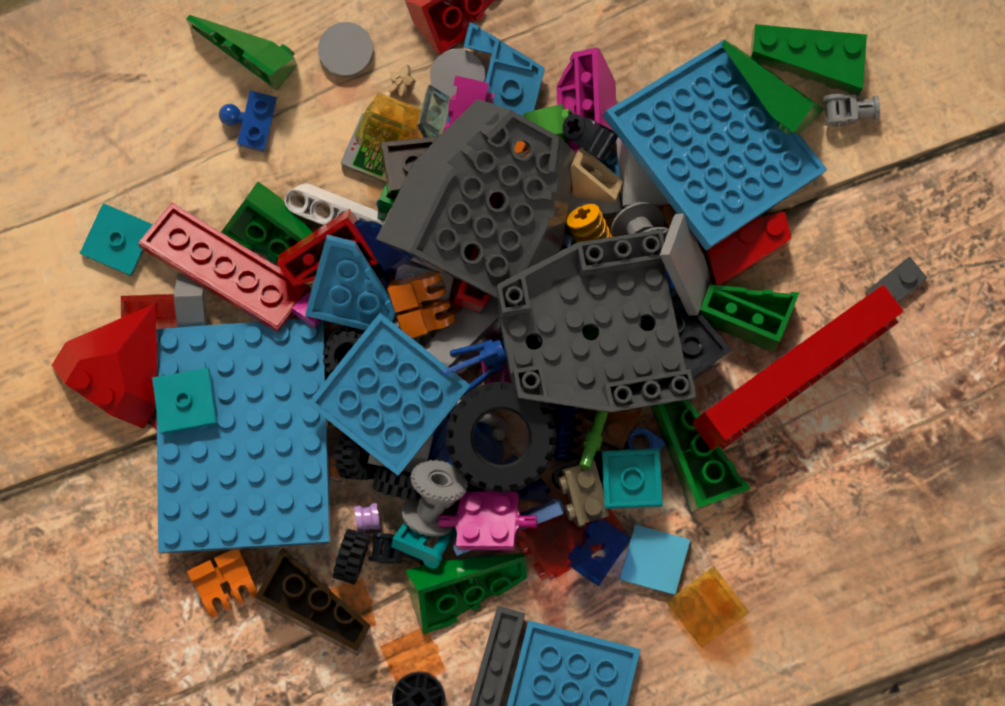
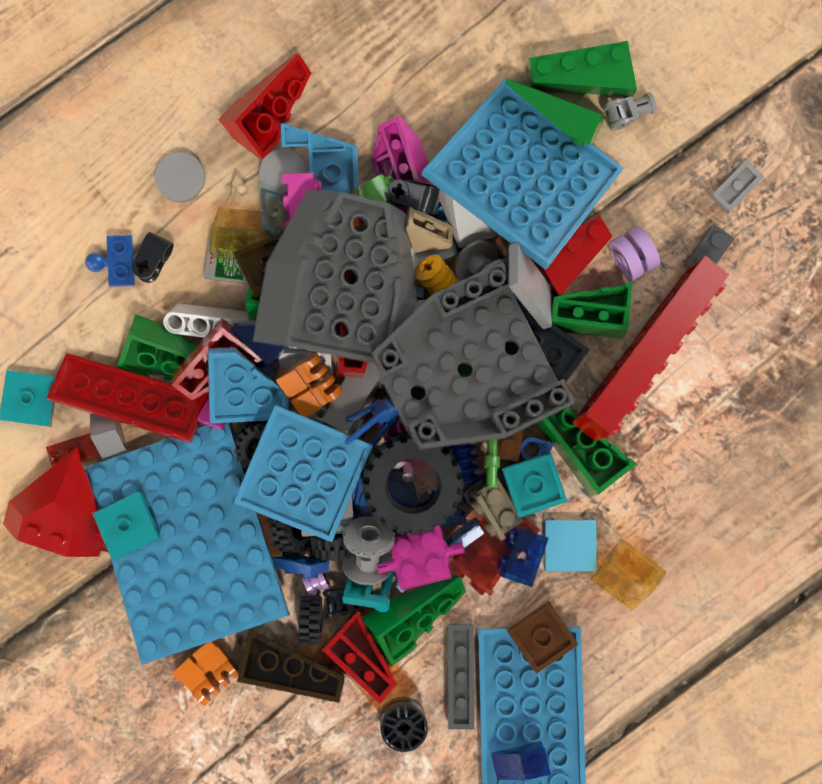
camera: 25 degrees left, 5 degrees up
(256, 54) = (103, 202): green wedge -> none
(295, 123) = (152, 254): none -> black piece
(365, 499) = (301, 564): none -> blue plate
(391, 613) = (358, 658): none -> red wedge
(595, 646) = (542, 637): none -> reddish brown tile
(811, 263) = (634, 253): none -> lavender wheel
(945, 222) = (737, 186): none -> light grey plate

